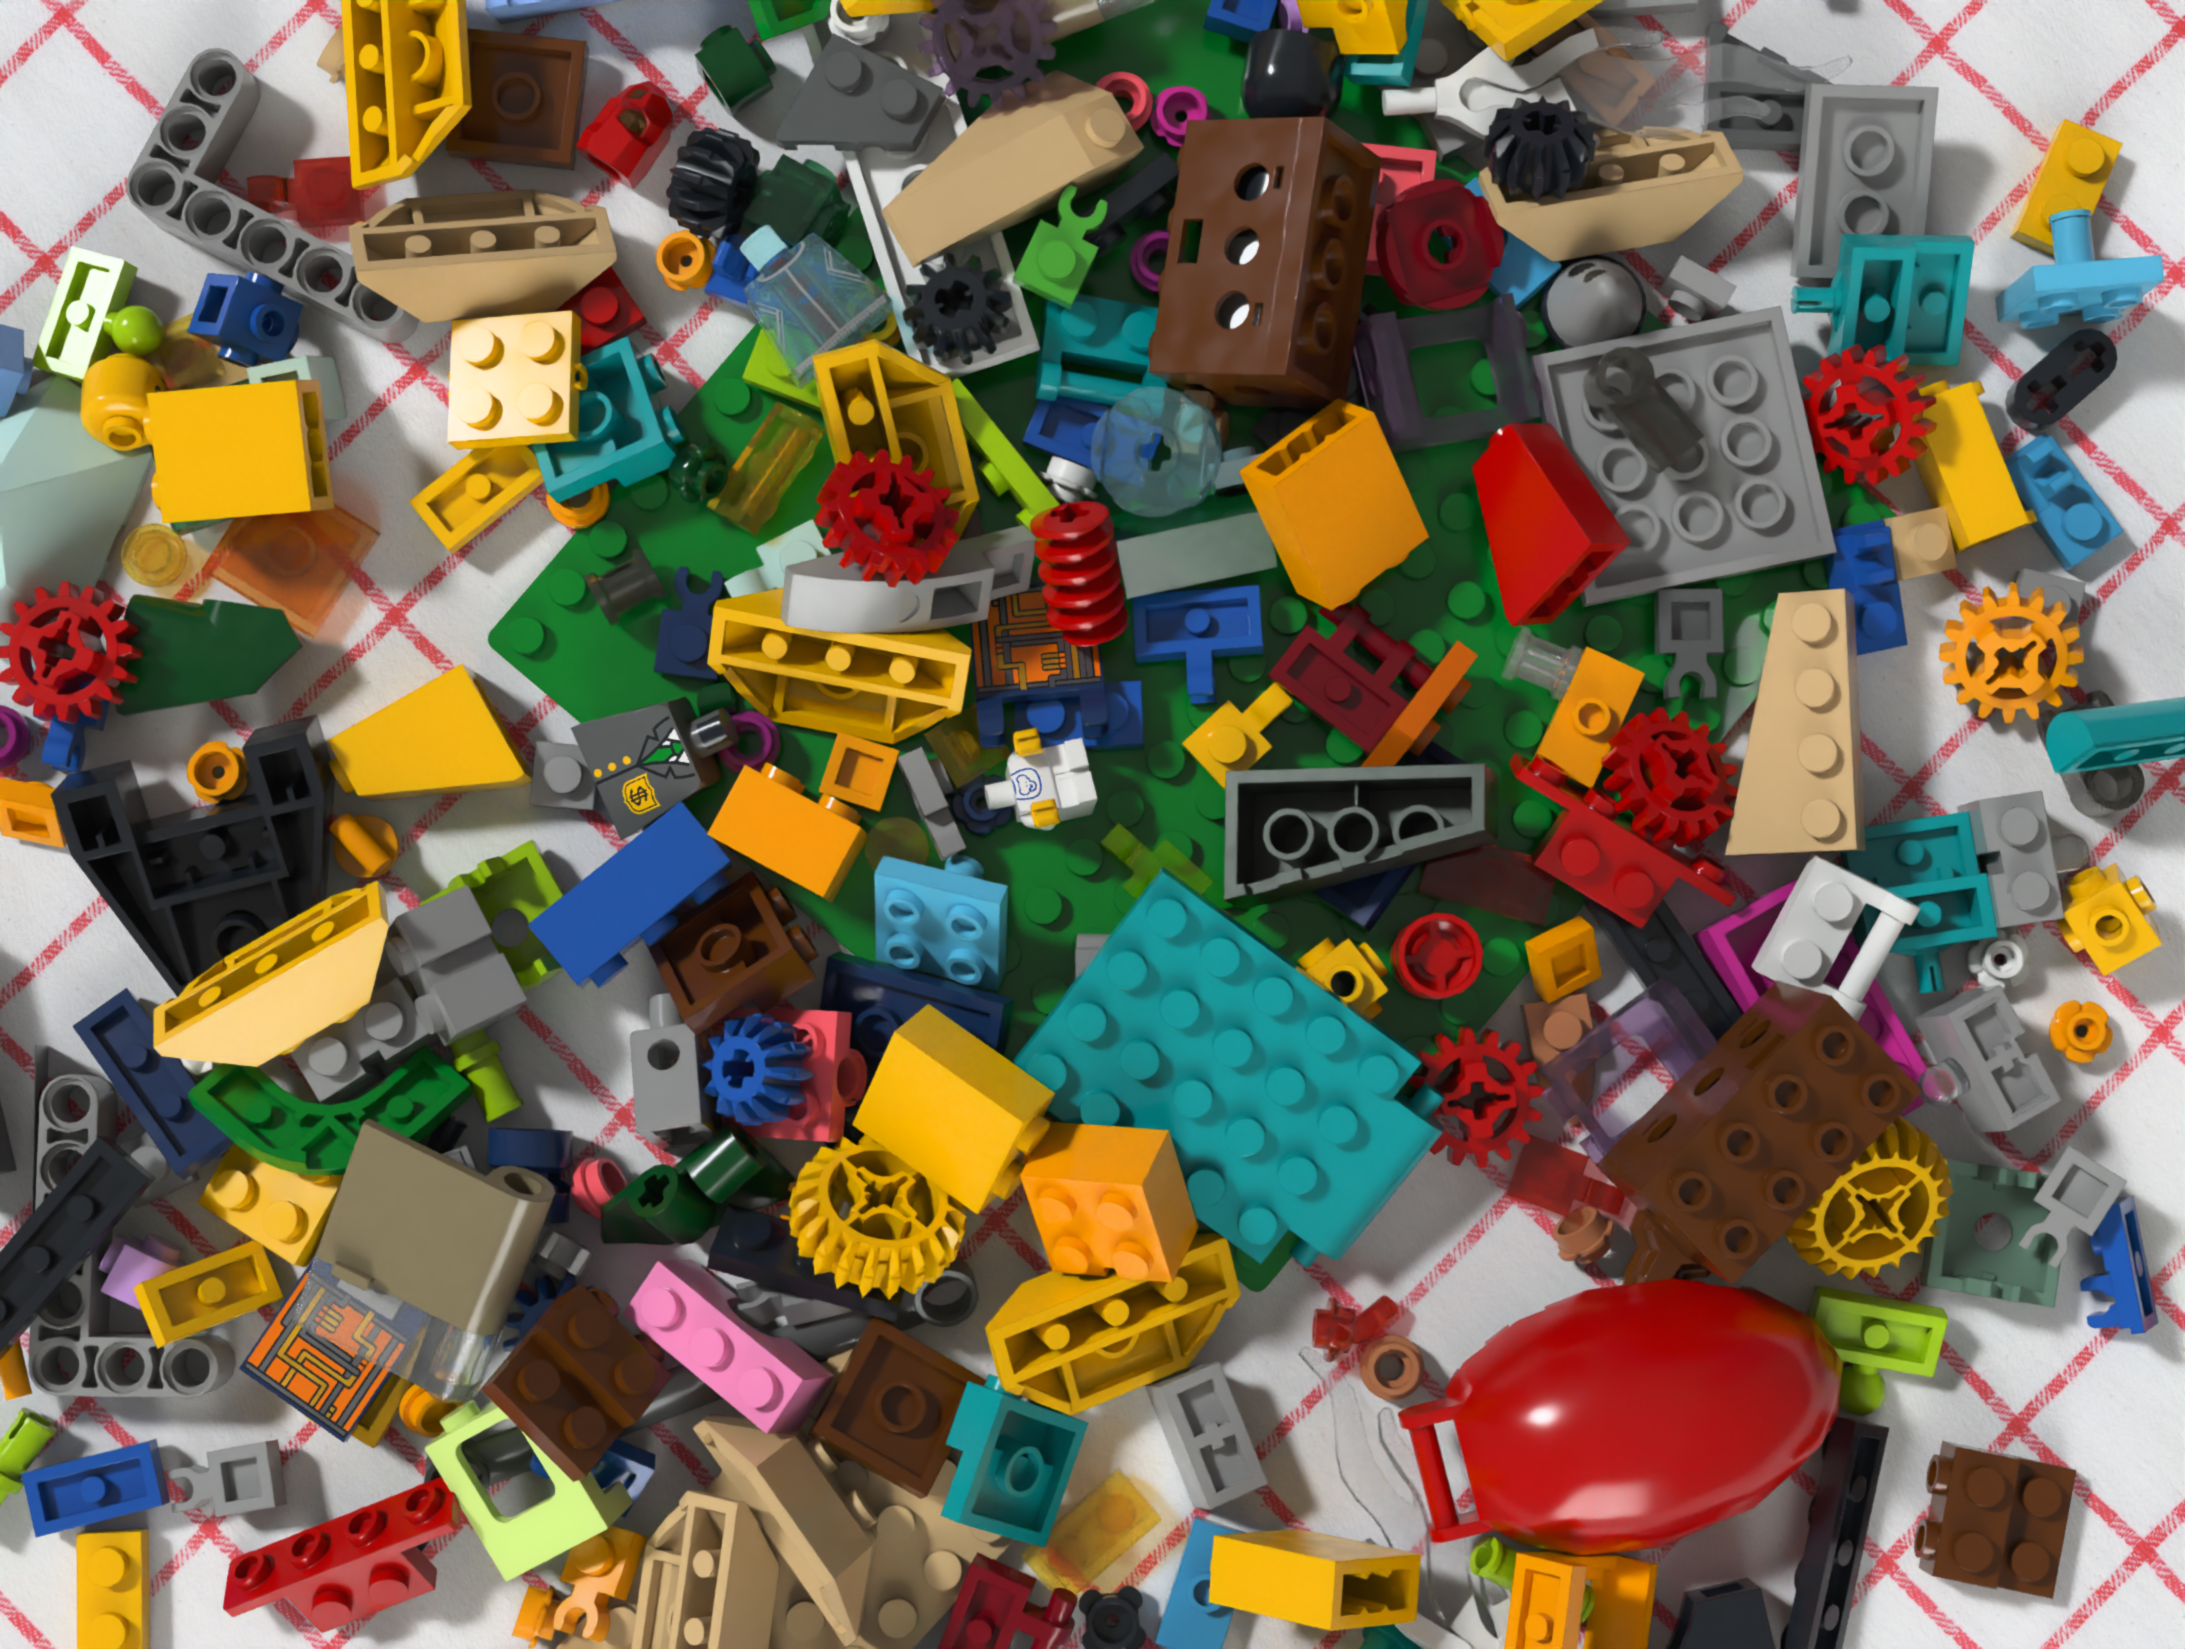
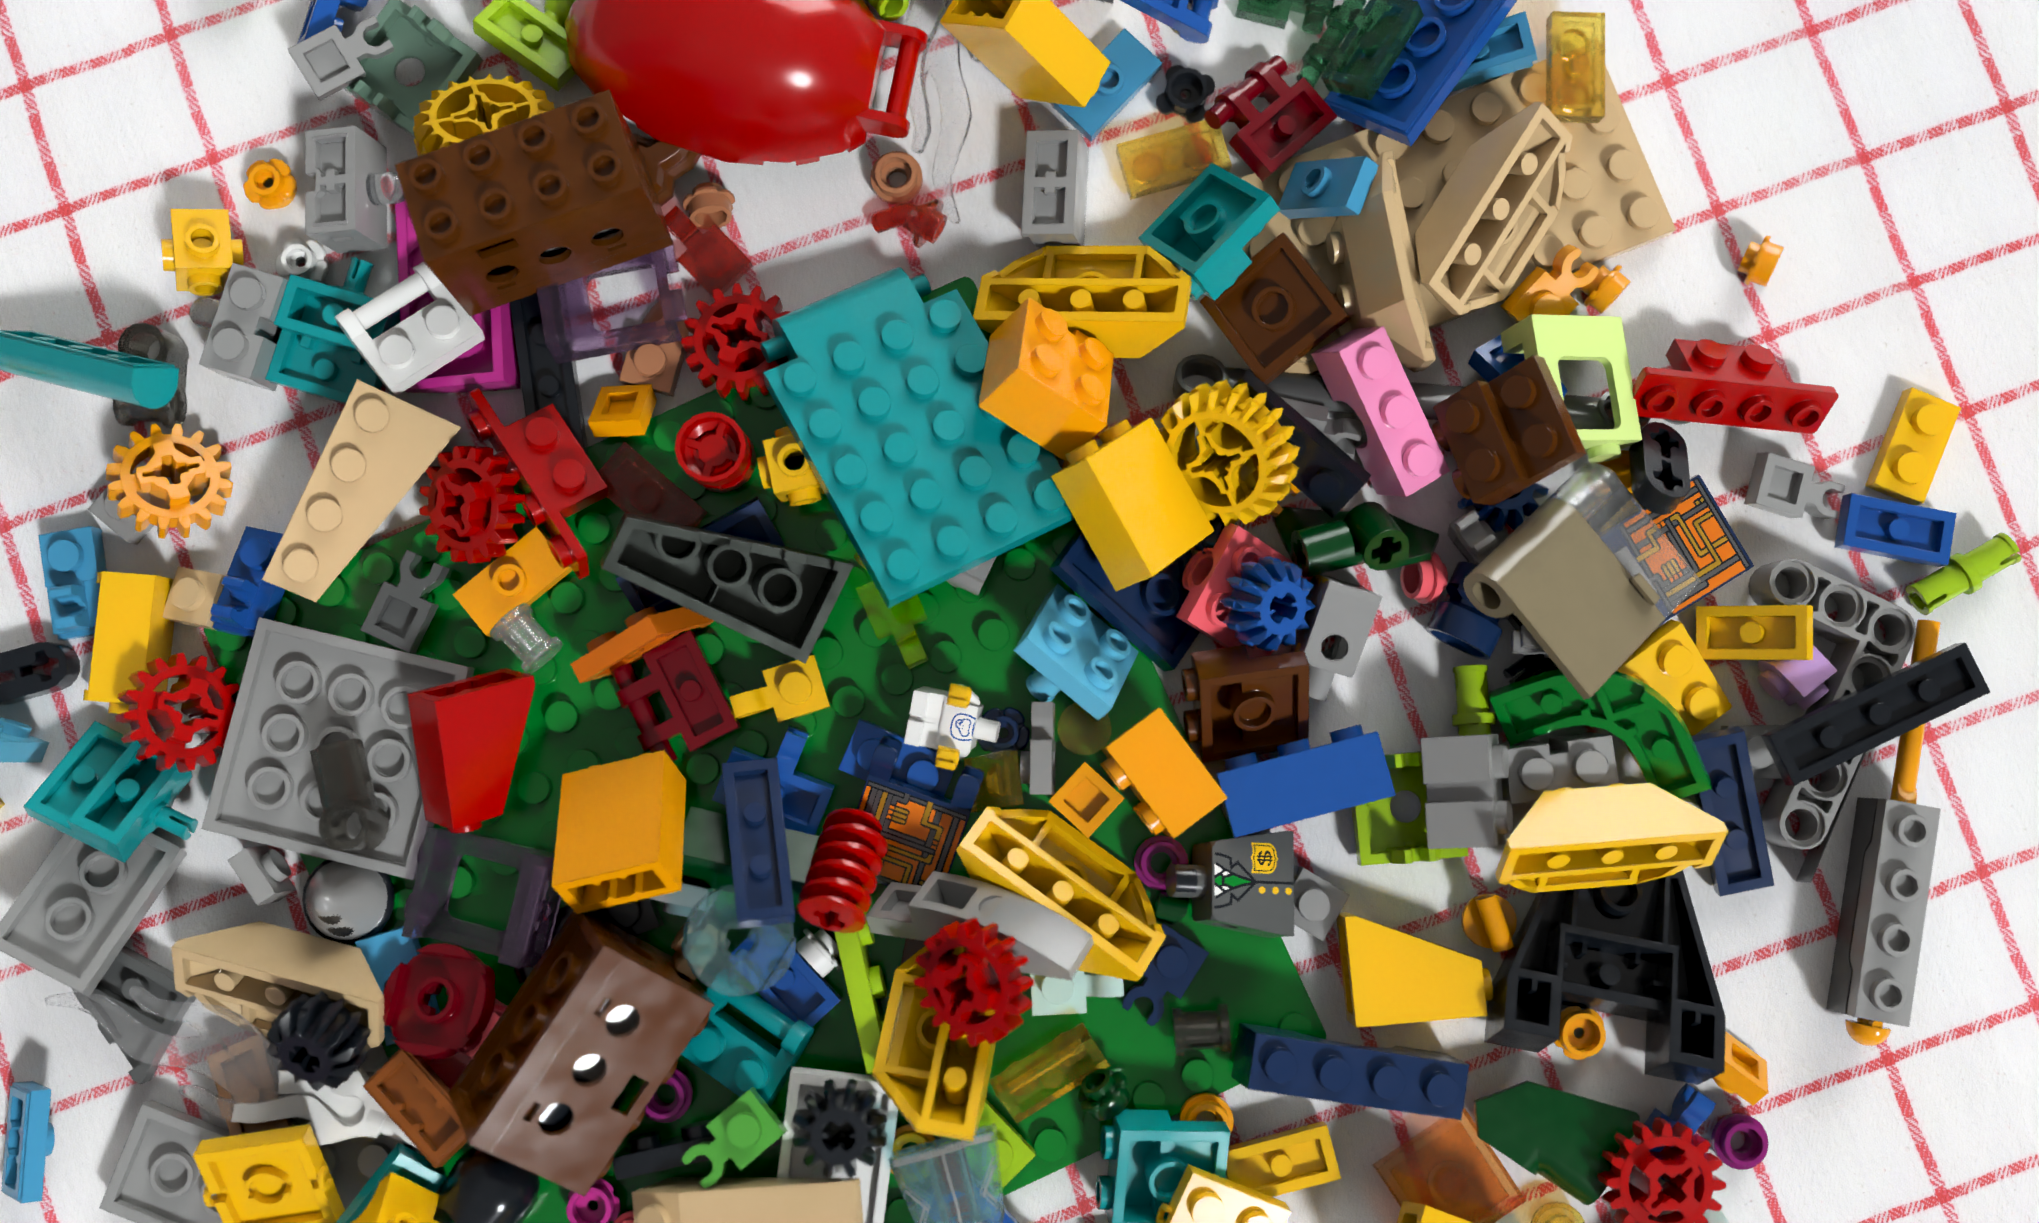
camera: 155 degrees left, 0 degrees up
(378, 1429) = (1659, 468): none -> black beam
(475, 603) = (1348, 1073): none -> dark blue arch
(899, 1569) = (1328, 187): none -> dark azure plate
(1184, 559) = (758, 843): none -> dark blue plate
(1405, 131) = (418, 1105): none -> dark orange plate

